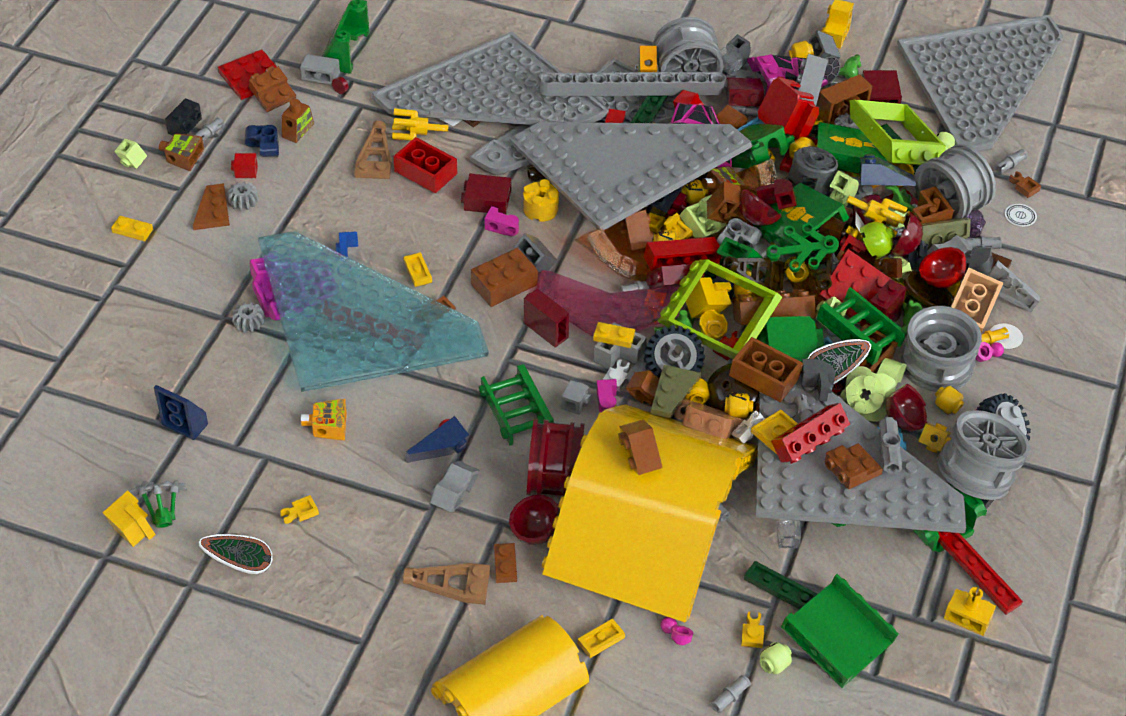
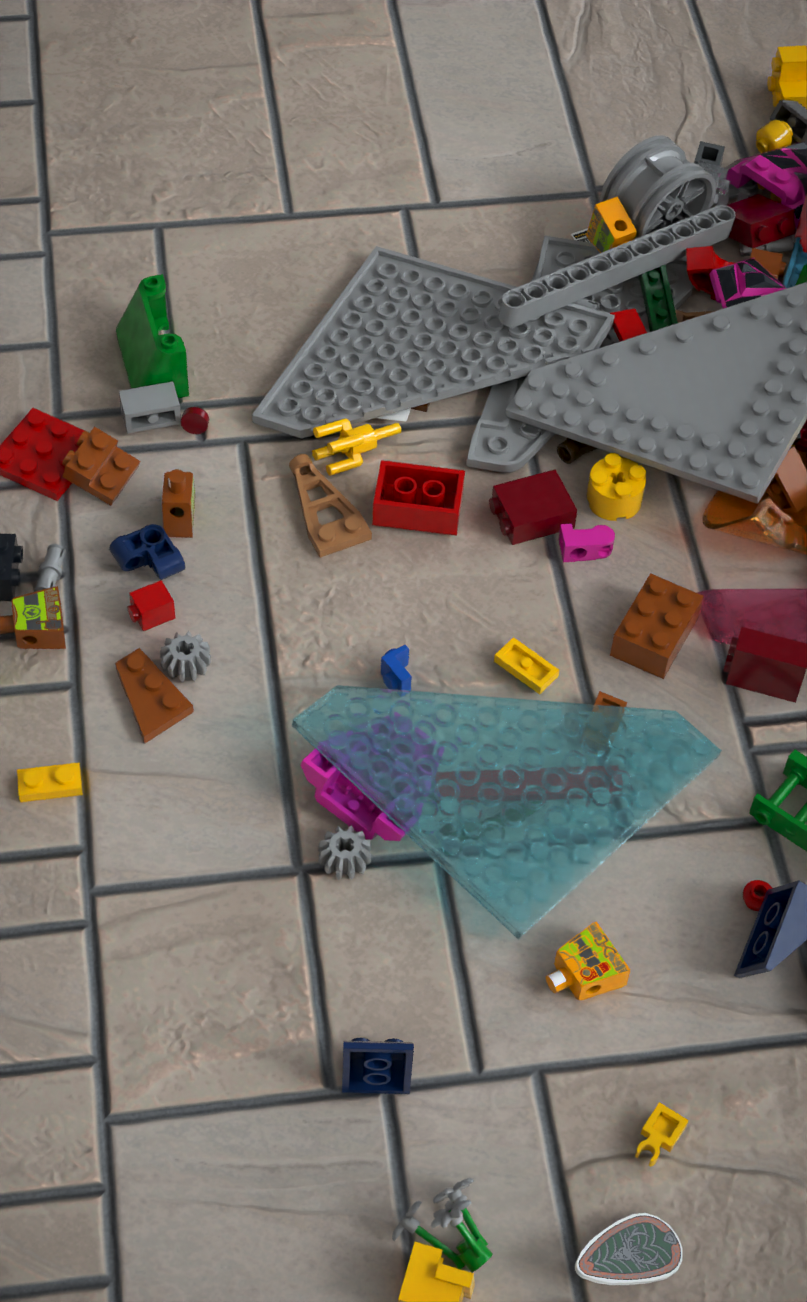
camera: 30 degrees left, 5 degrees up
(536, 252) = (673, 568): dark grey brick -> none

